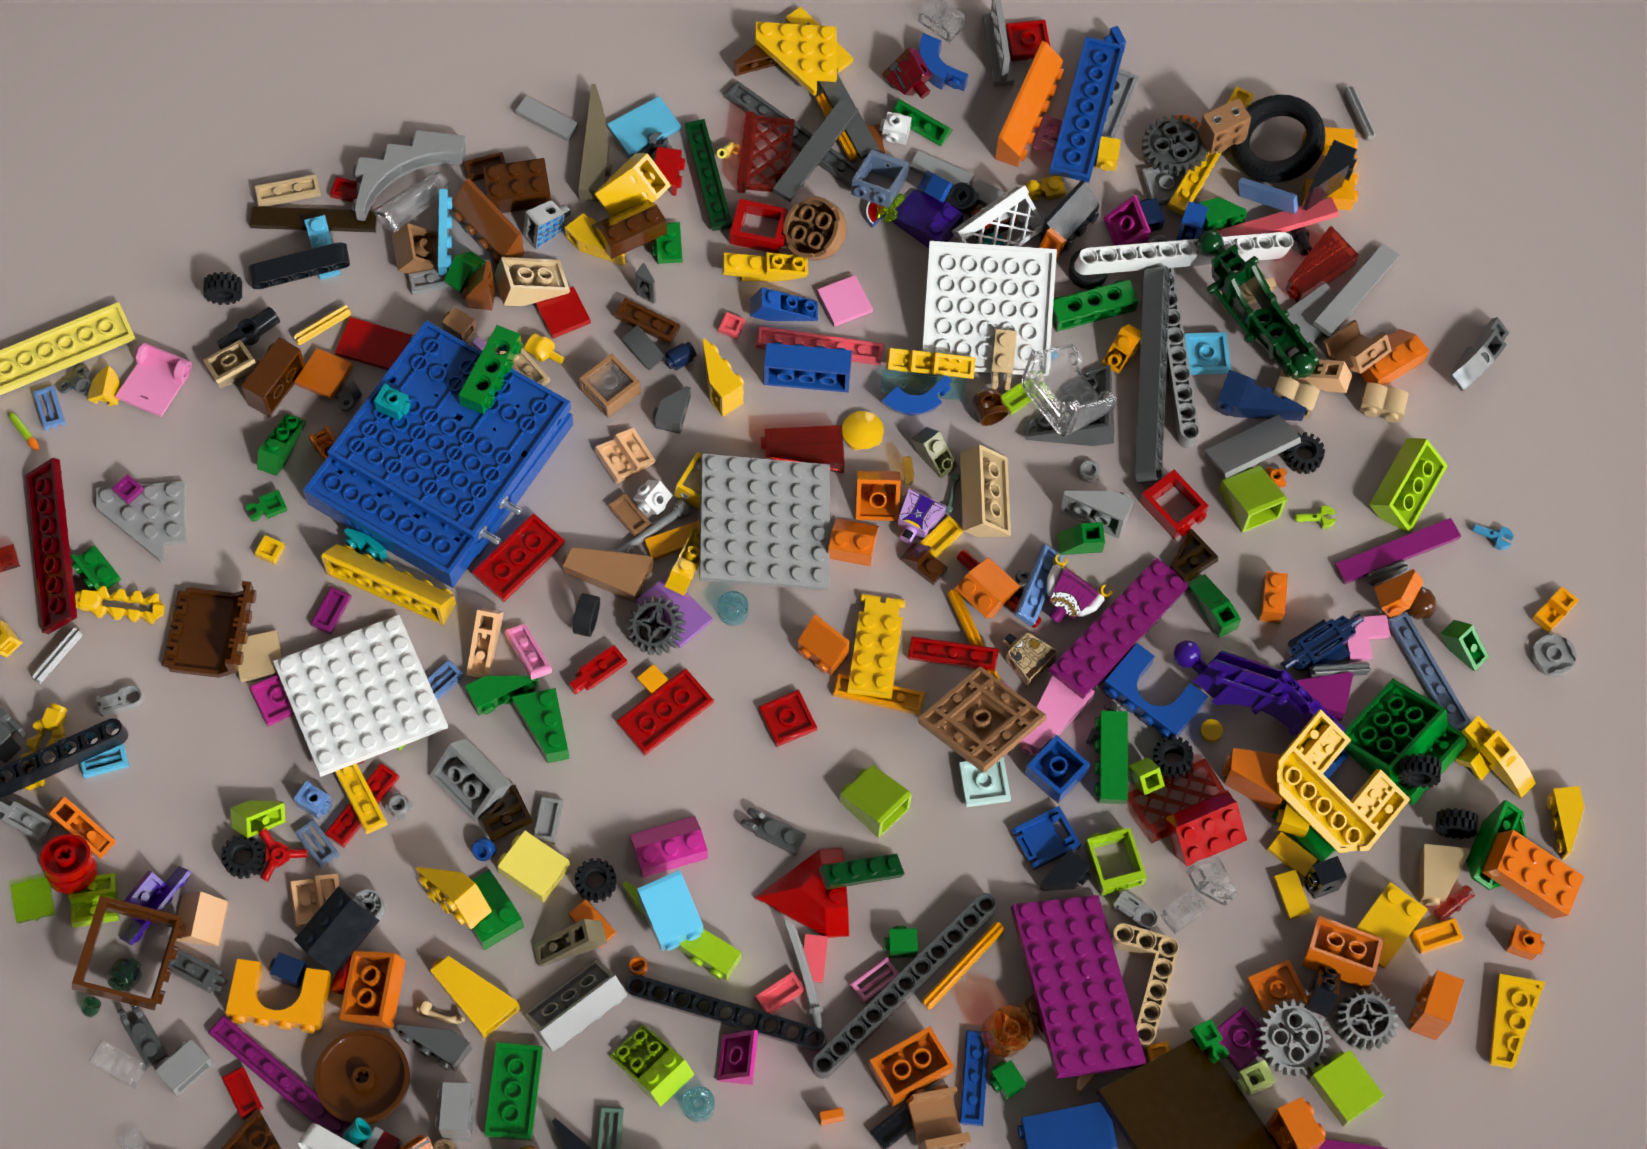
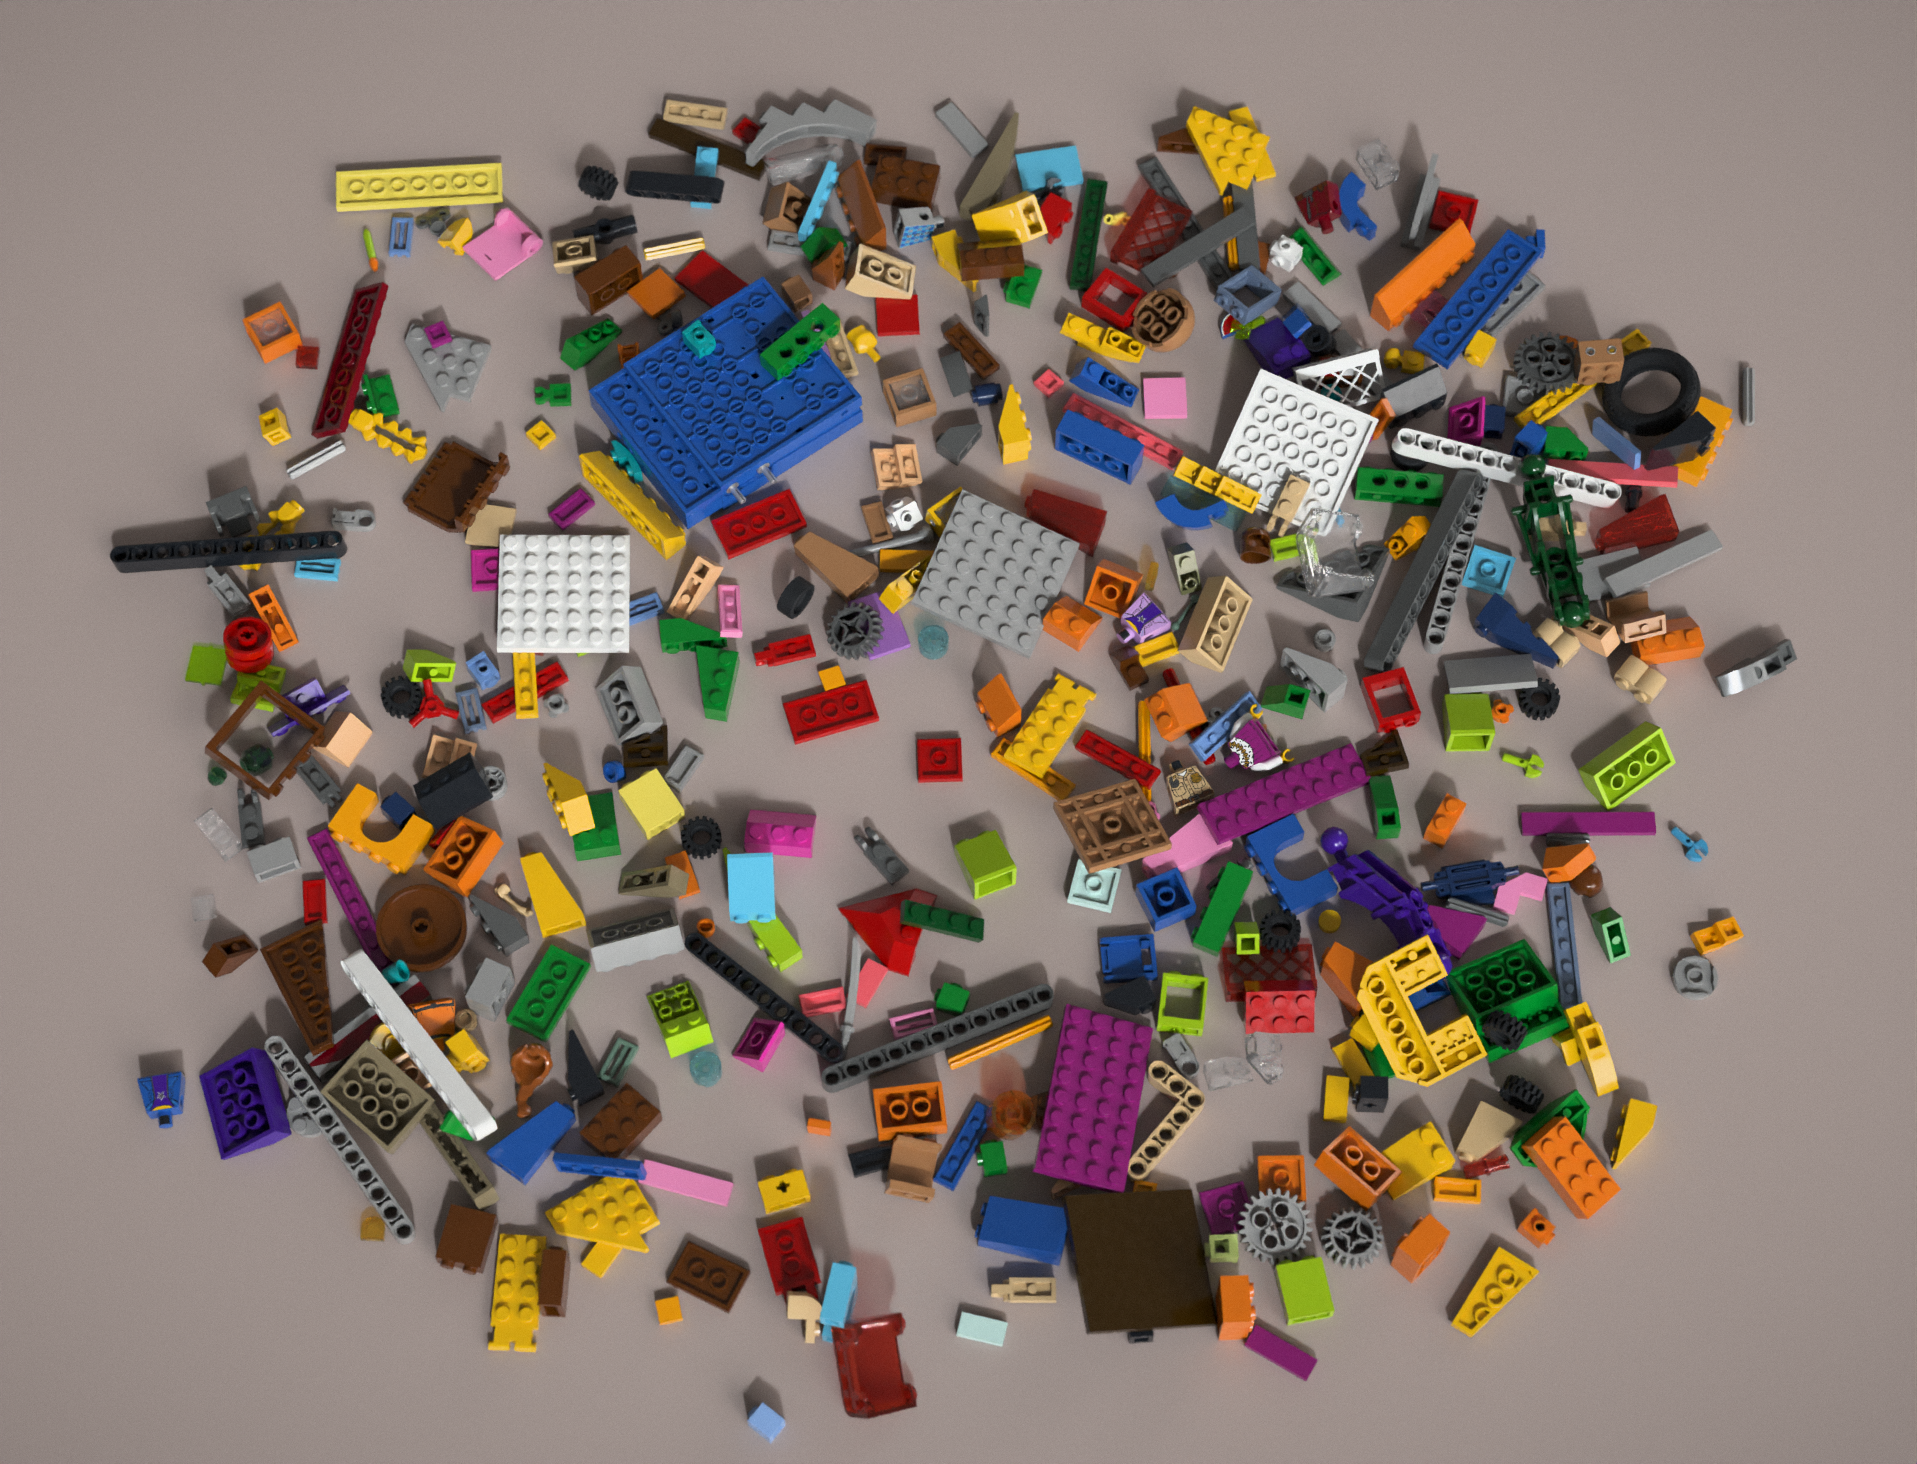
camera: 25 degrees right, 0 degrees up
(862, 430) = (1127, 524): yellow dish -> none
(1208, 1038) = (1195, 1194): green plate -> none
(1323, 991) = (1320, 1194): black brick -> none

